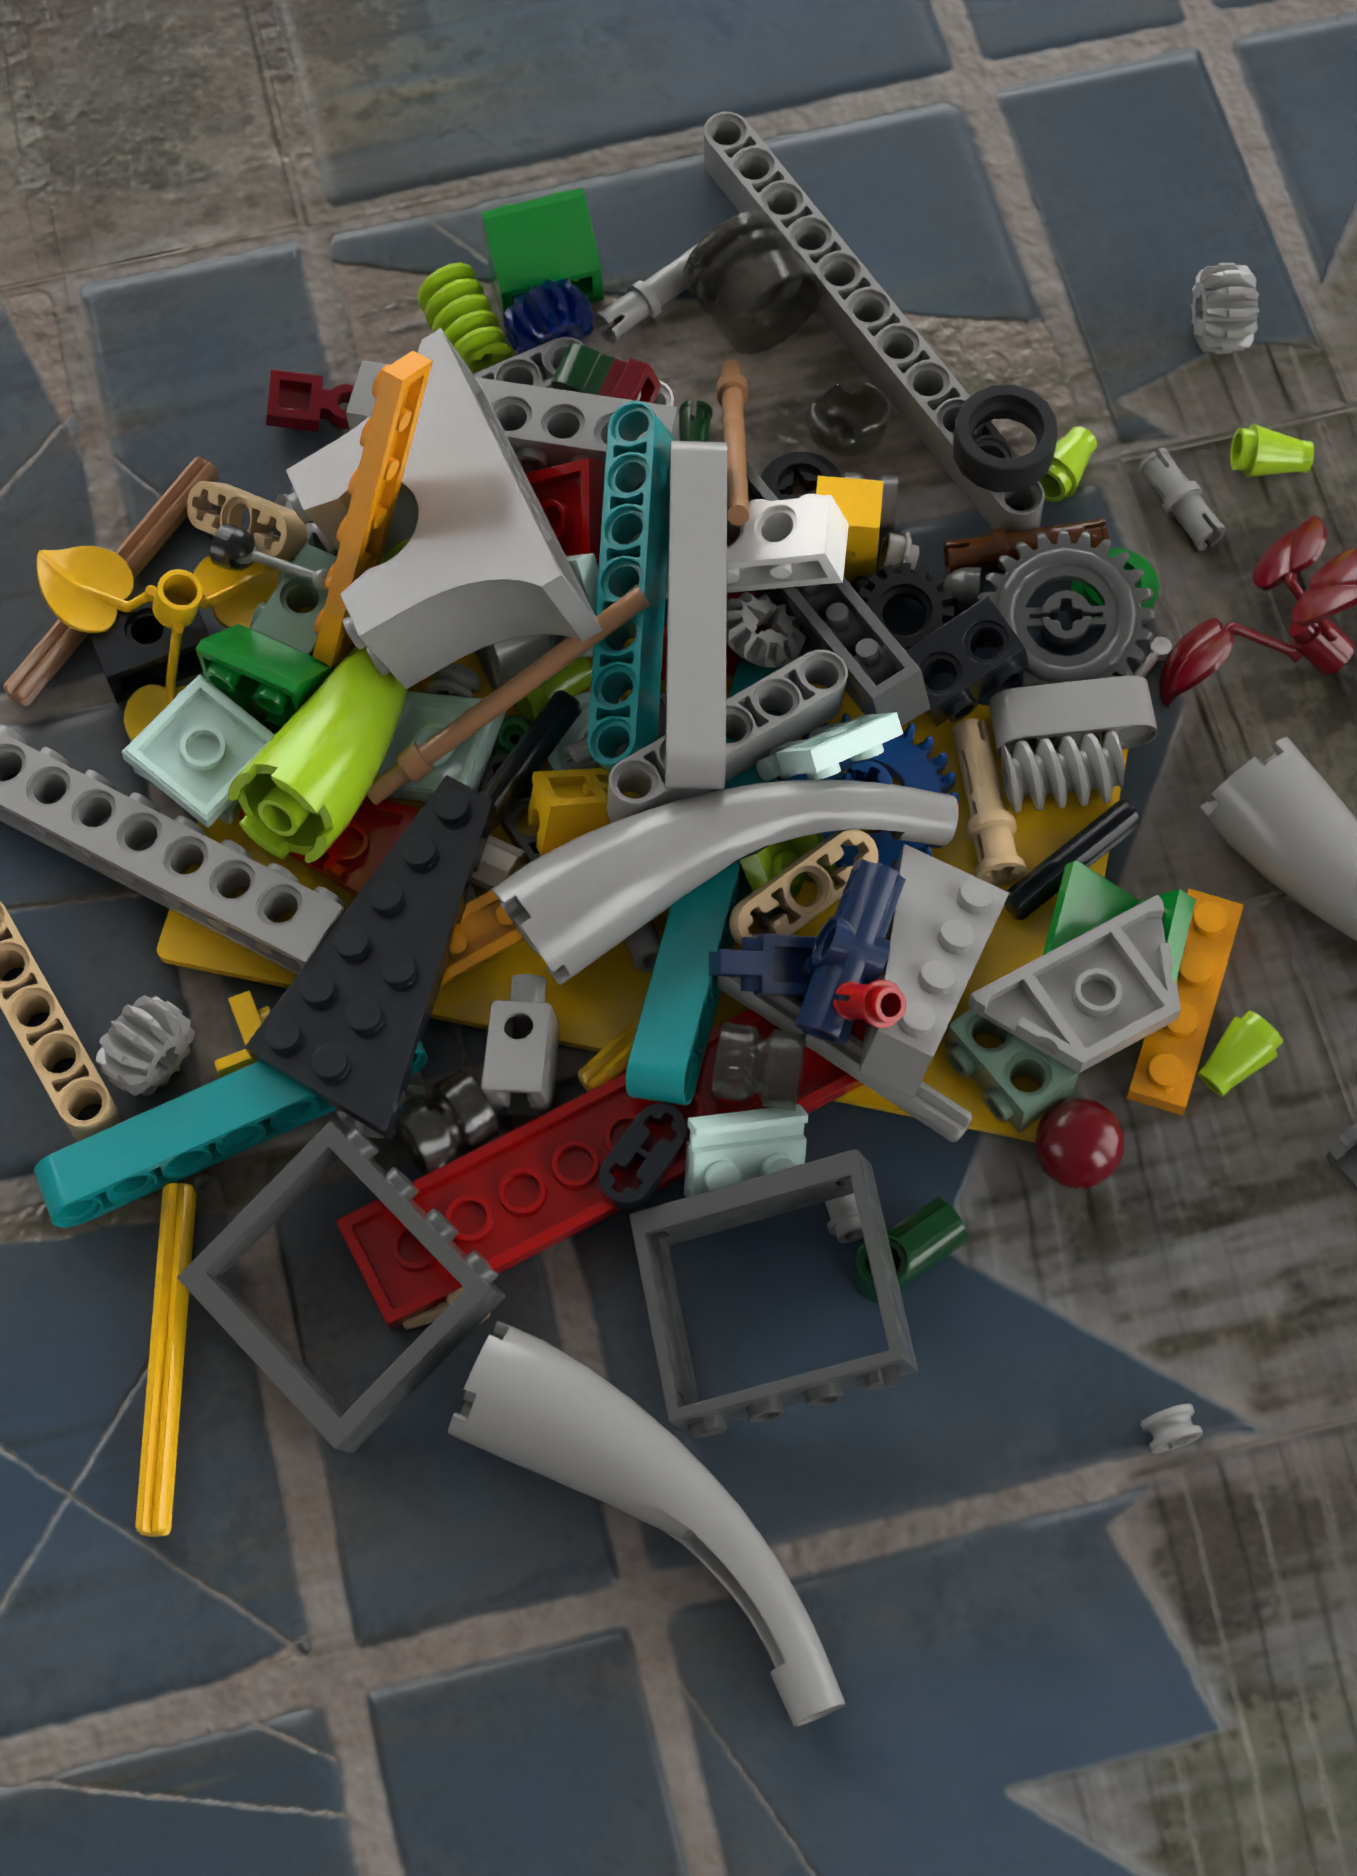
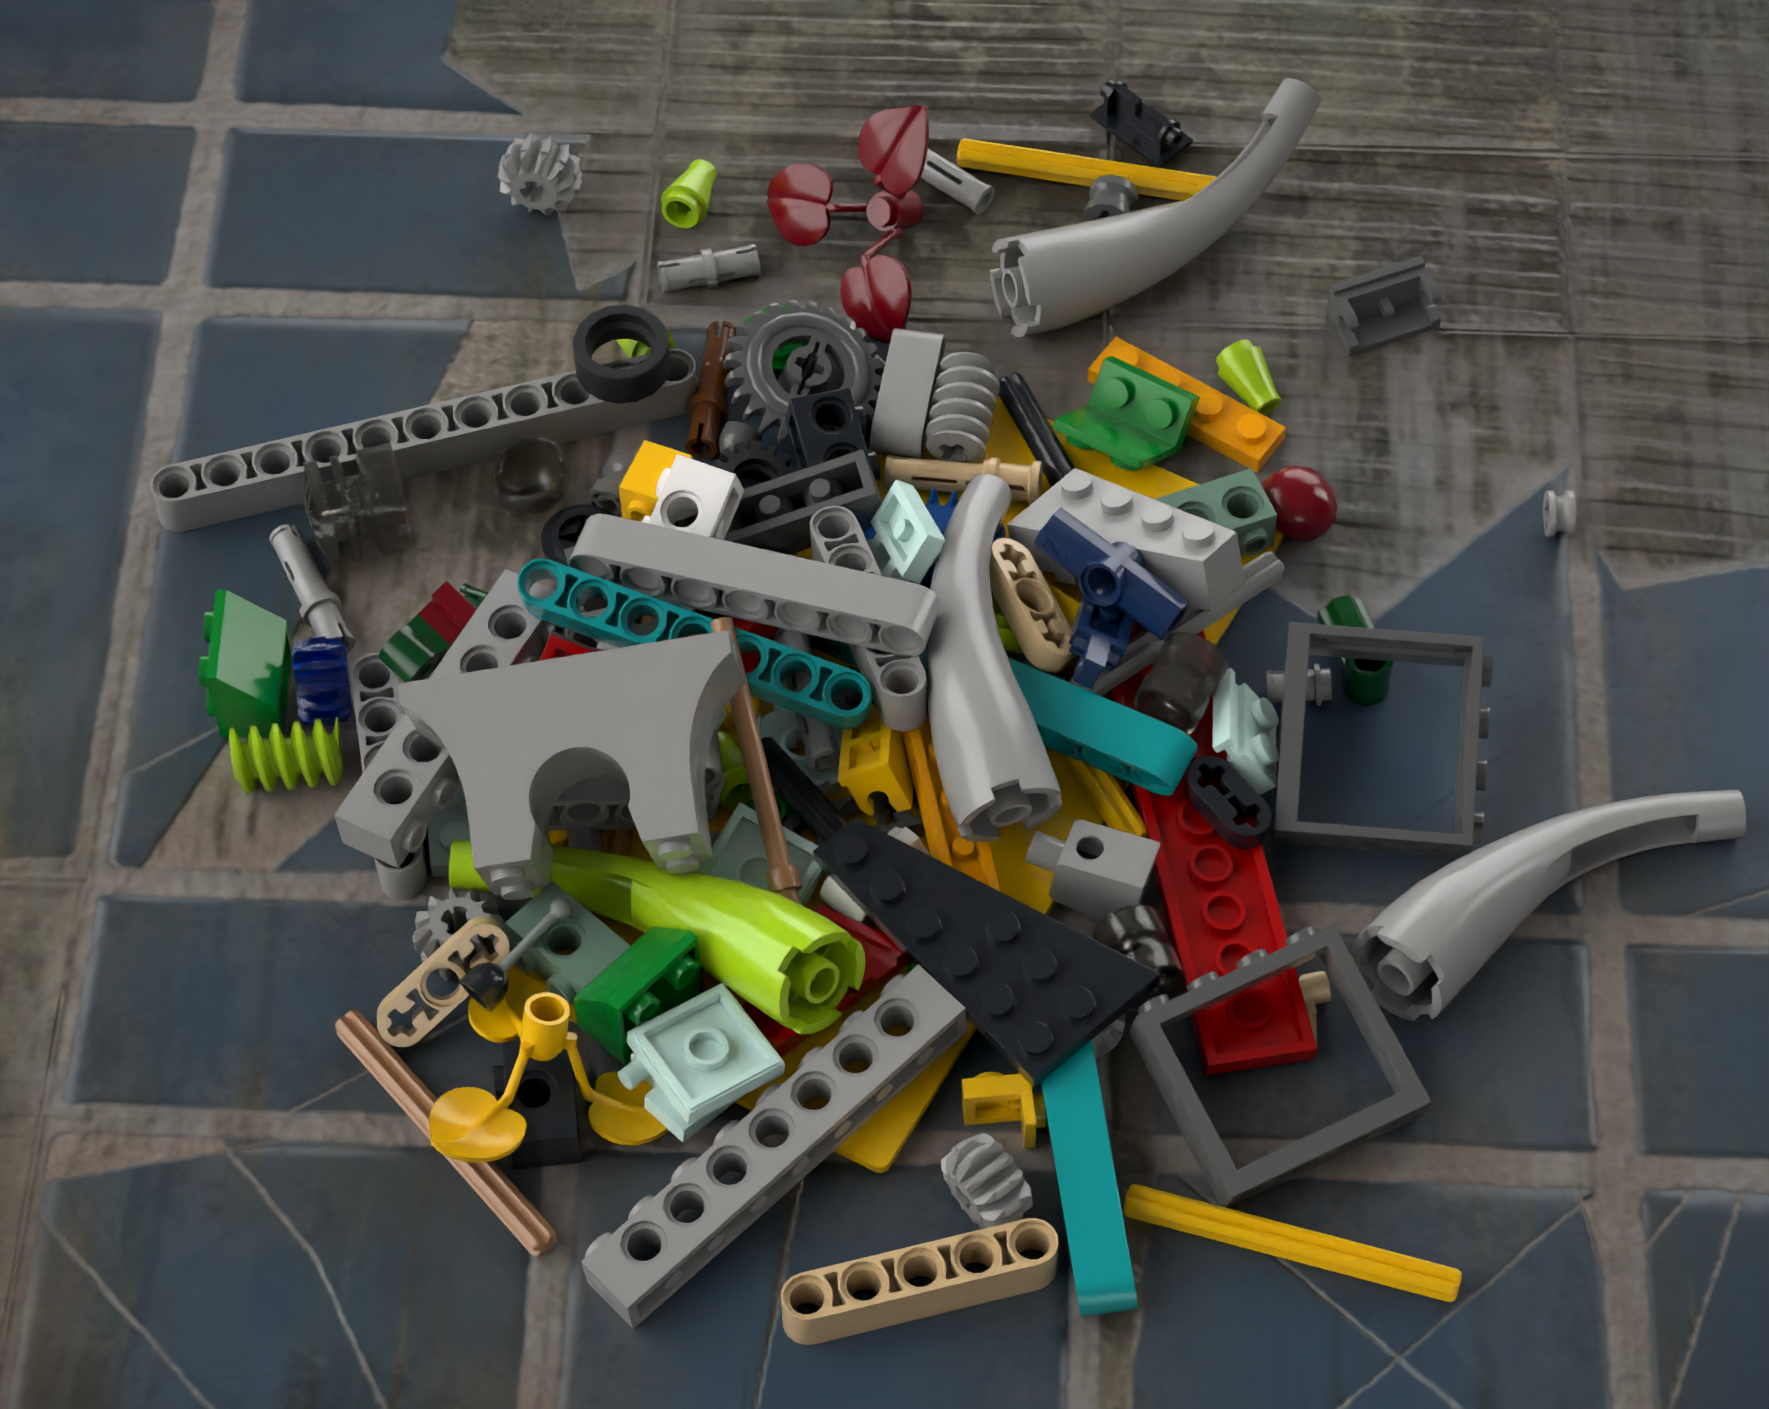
camera: 75 degrees left, 10 degrees down
(300, 402) = (311, 919): dark red plate -> none
(374, 493) = (564, 783): light orange plate -> none
(732, 396) = (467, 557): medium nougat bar -> none
(877, 1003) = (1180, 554): red pin -> none
(1090, 991) = (1186, 434): light grey wing -> none

